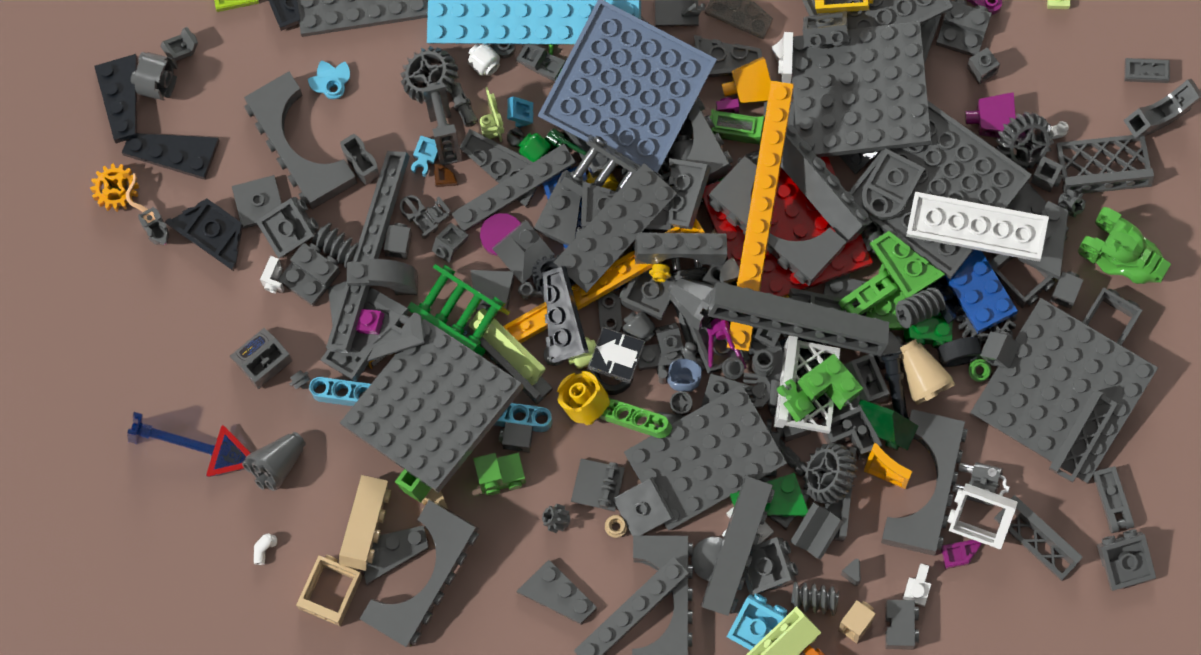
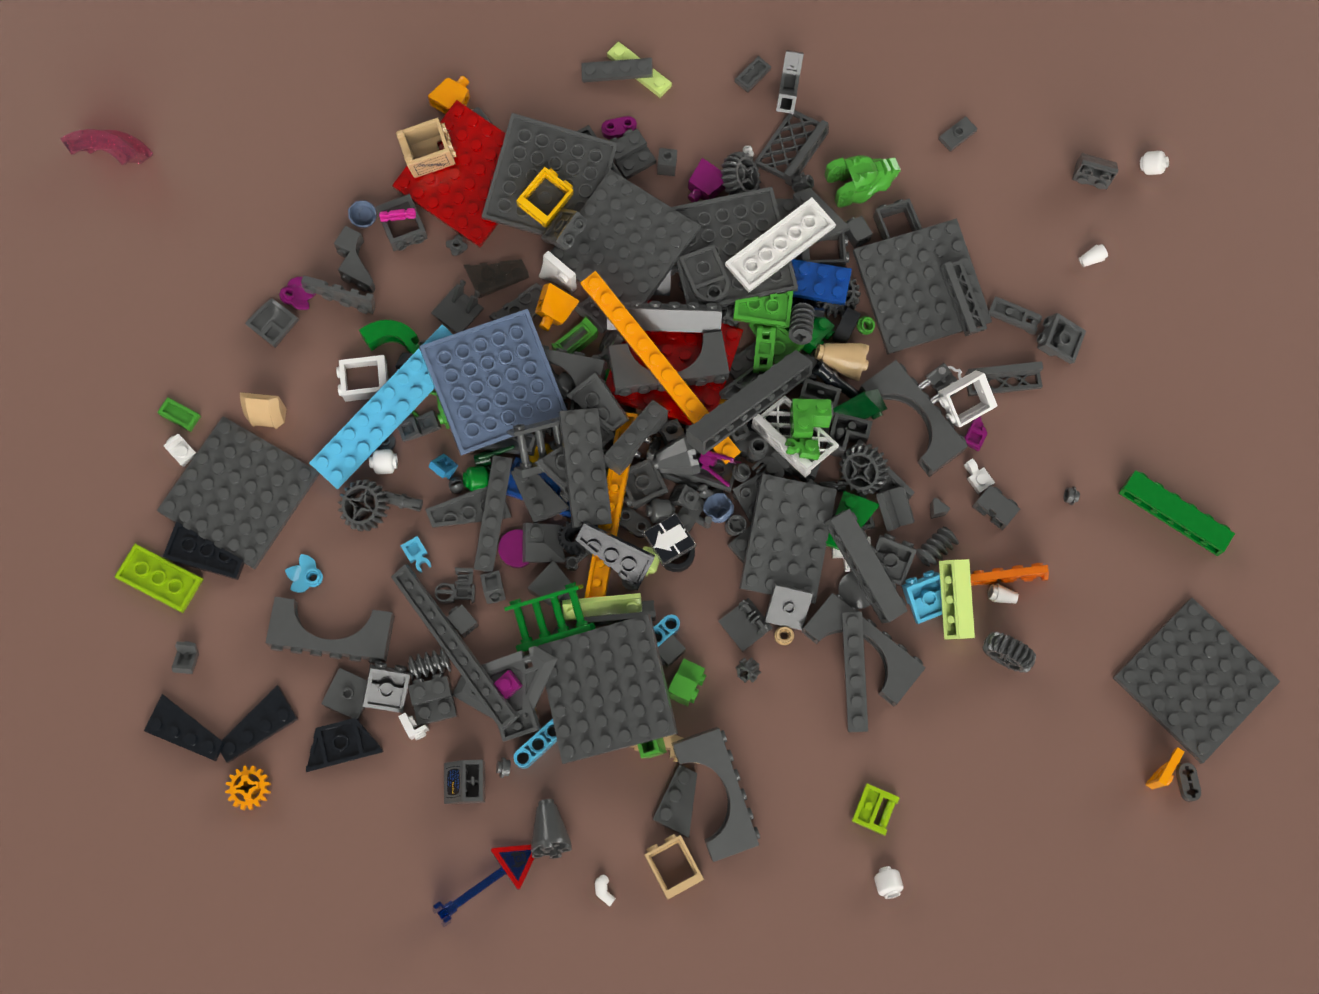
camera: 60 degrees left, 0 degrees up
(150, 220) = (295, 781): dark grey animal -> none
(154, 76) = (192, 693): dark grey brick -> none
(360, 159) = (377, 599): dark grey brick -> none
(363, 523) = (647, 804): tan brick -> none
(385, 273) = (480, 648): dark grey arch -> none
(444, 134) = (421, 525): dark grey fence -> none
(444, 176) = (442, 554): reddish brown tile -> none
(492, 123) = (436, 488): yellowish green hinge -> none
(554, 590) = (797, 711): dark grey wing -> none
(582, 397) = (680, 585): yellow brick -> none
(634, 415) = (723, 566): bright green beam -> none
(660, 272) = (638, 465): yellow plate -> none
(728, 105) = (556, 333): magenta plate -> none
(729, 271) = (677, 420): dark grey tile -> none
(857, 621) = (976, 531): tan brick -> none
(885, 468) = (887, 431): light orange plate -> none
(1000, 349) = (867, 300): dark grey brick -> none
(1047, 174) = (774, 179): dark grey brick -> none

